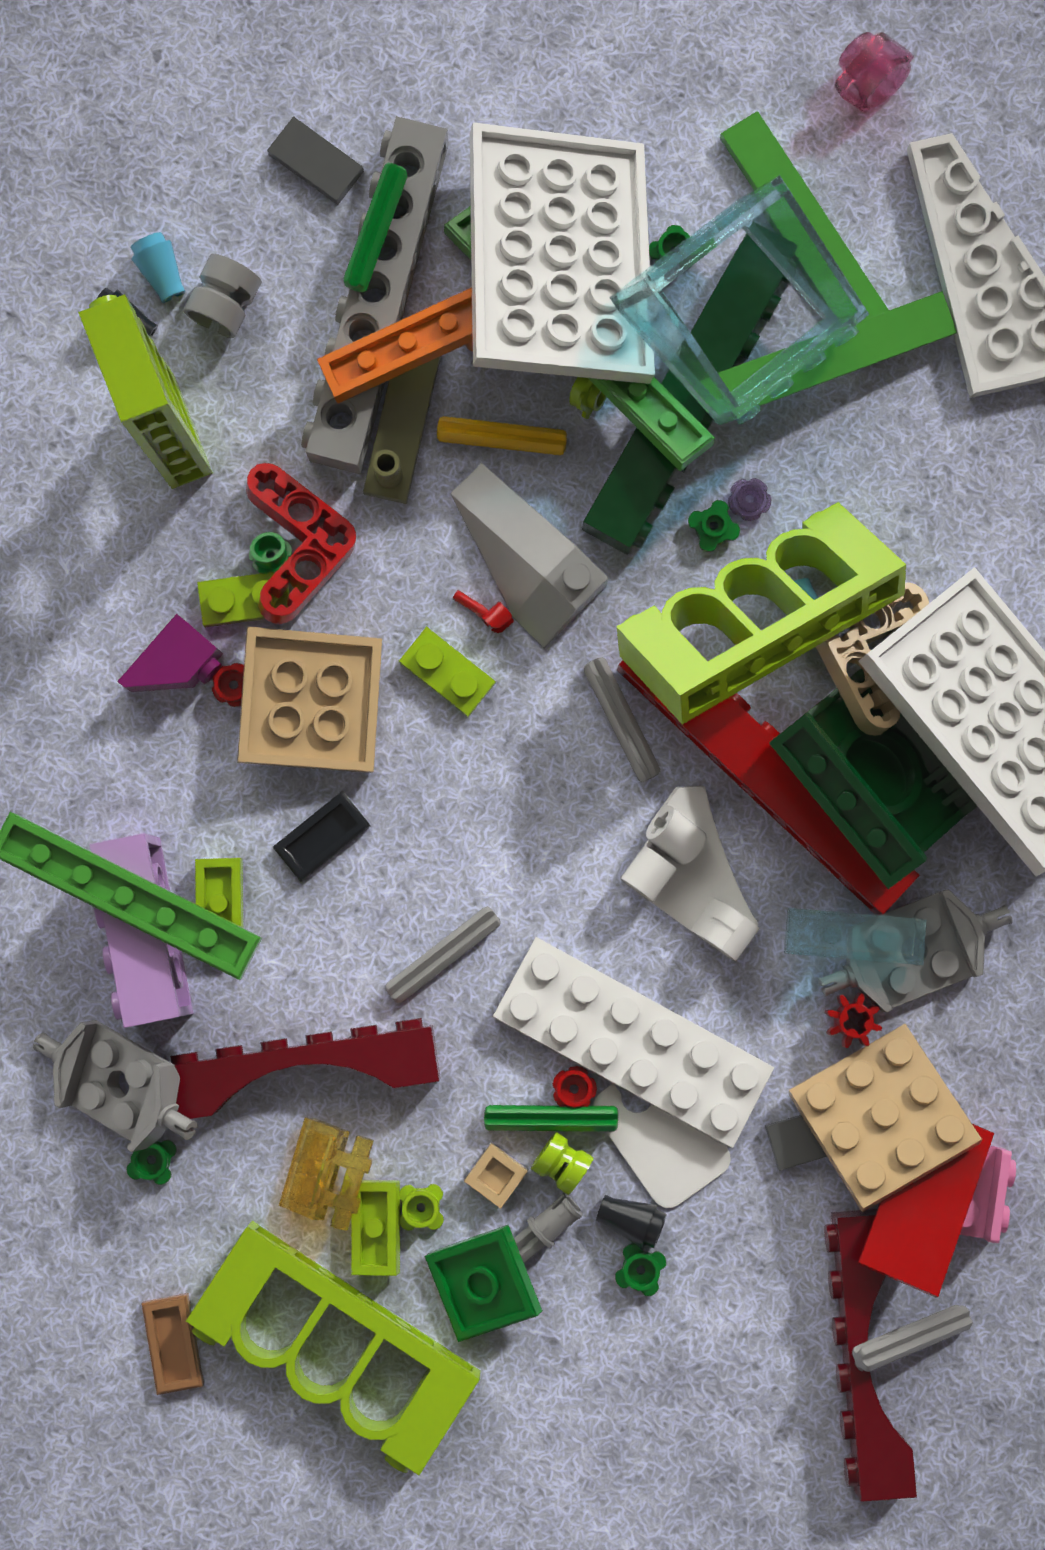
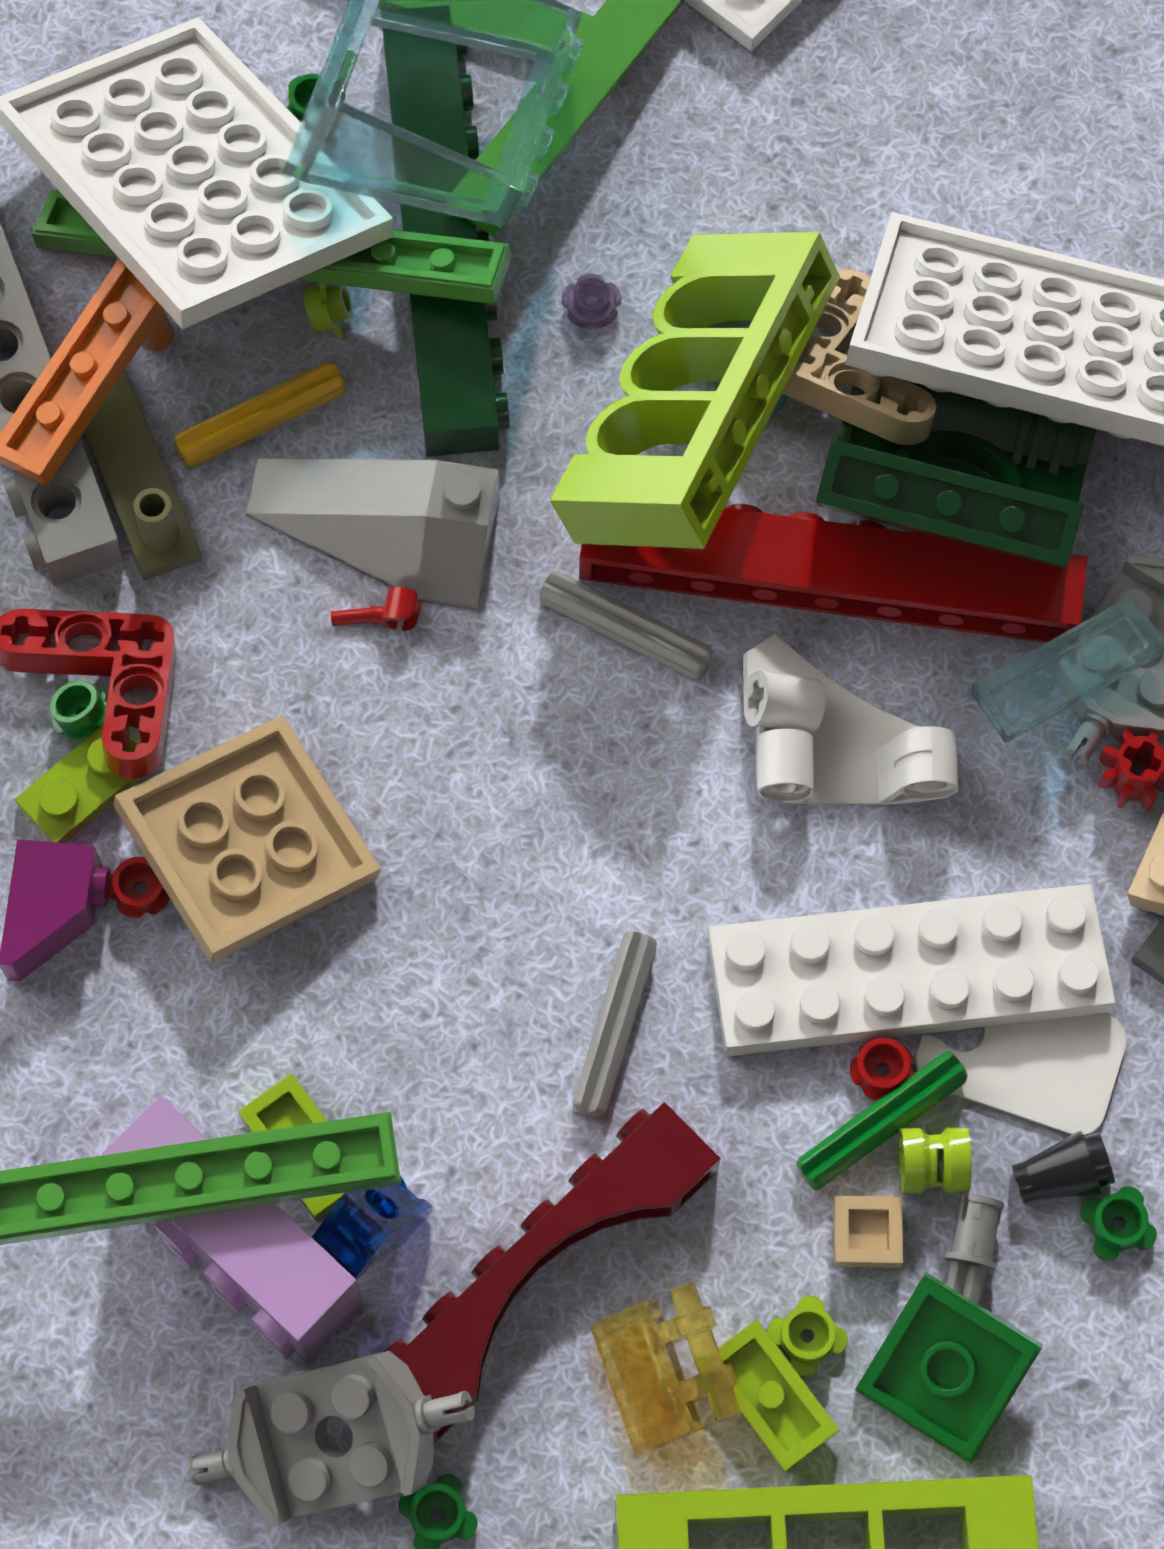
camera: 35 degrees left, 15 degrees down
(206, 984) = (370, 1225): none -> clear blue leg
(321, 836) = (371, 989): black tile -> none
(447, 671) = (385, 706): lime plate -> none
(701, 523) = (578, 369): green plate -> none

